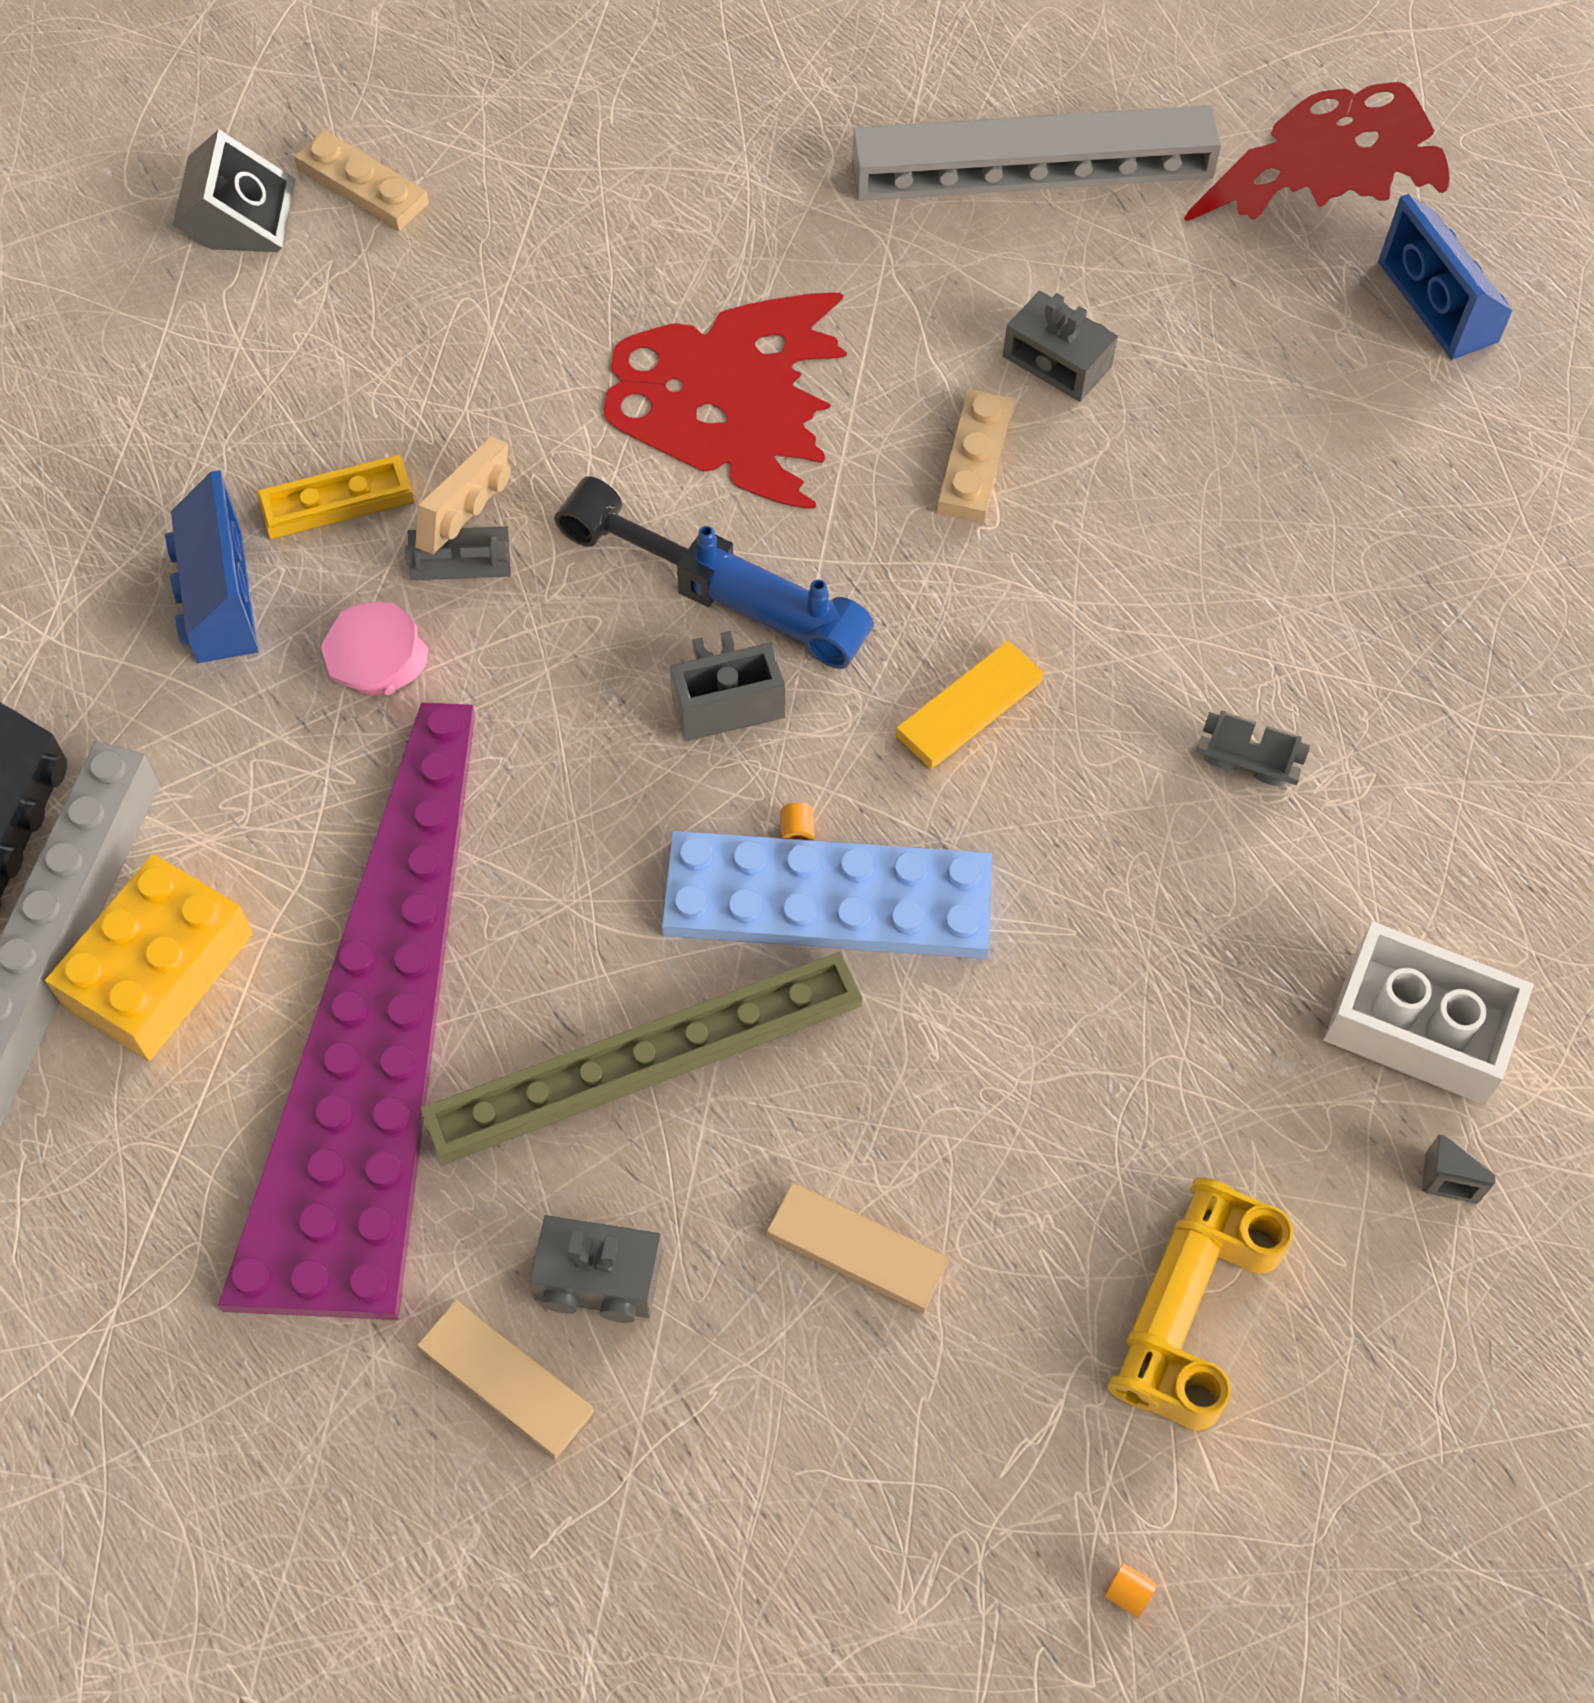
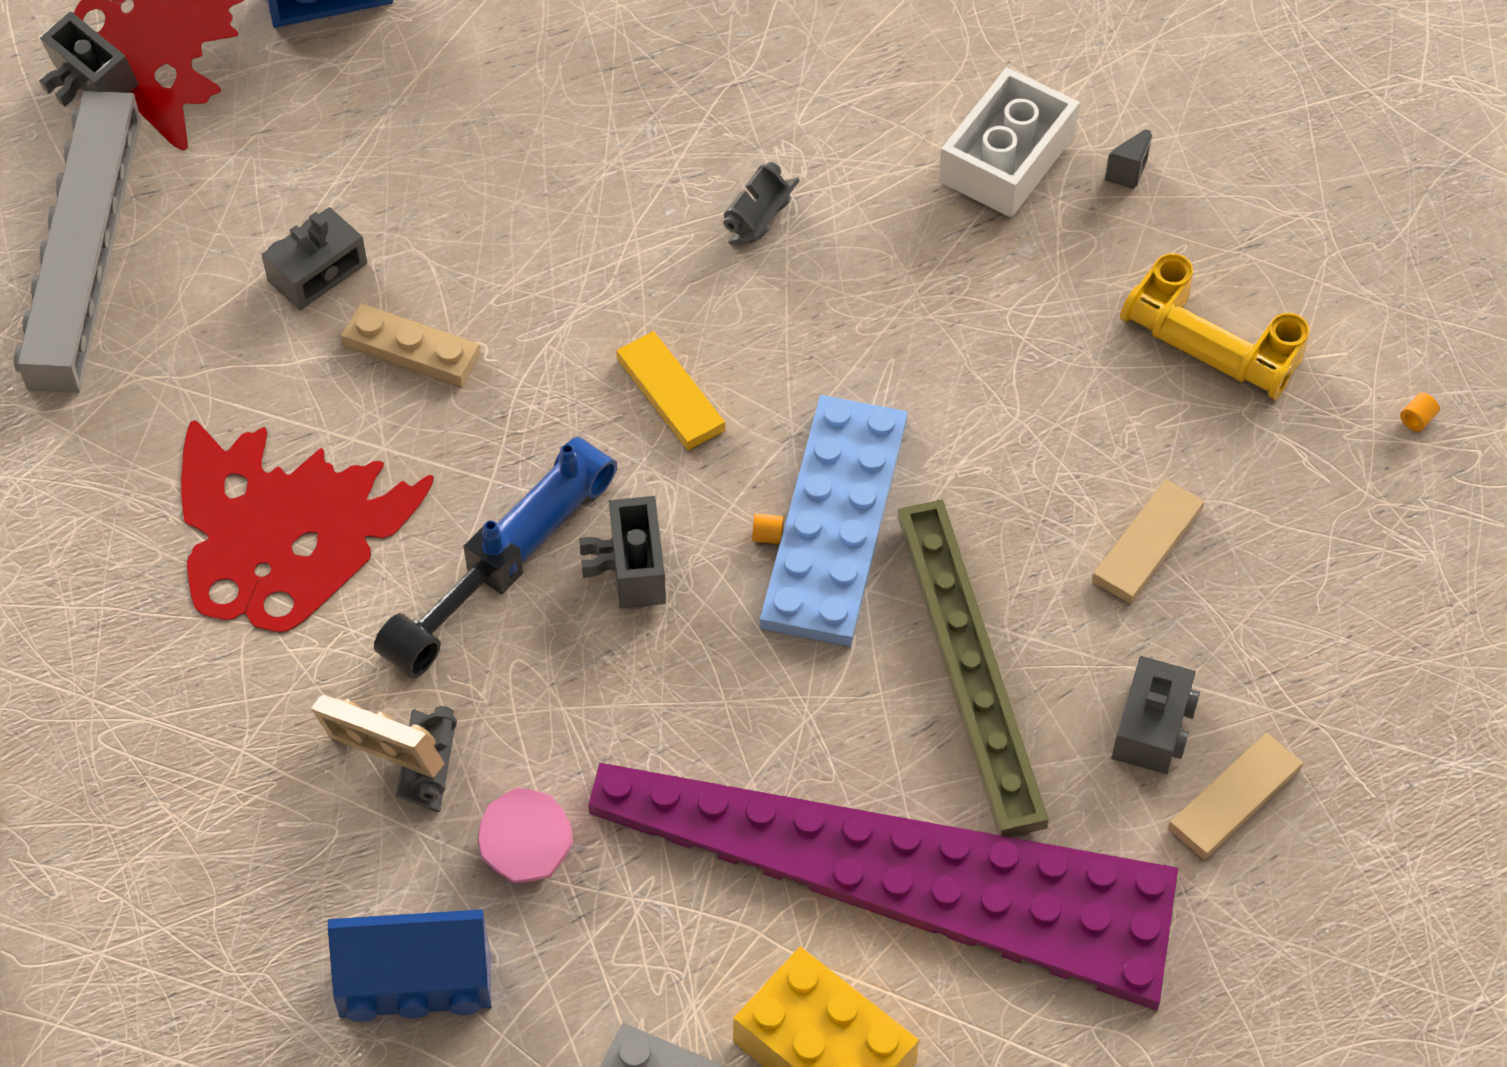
camera: 80 degrees left, 5 degrees down
(335, 496) = (323, 864): yellow tile -> none
(1254, 104) = (83, 61): none -> dark grey brick

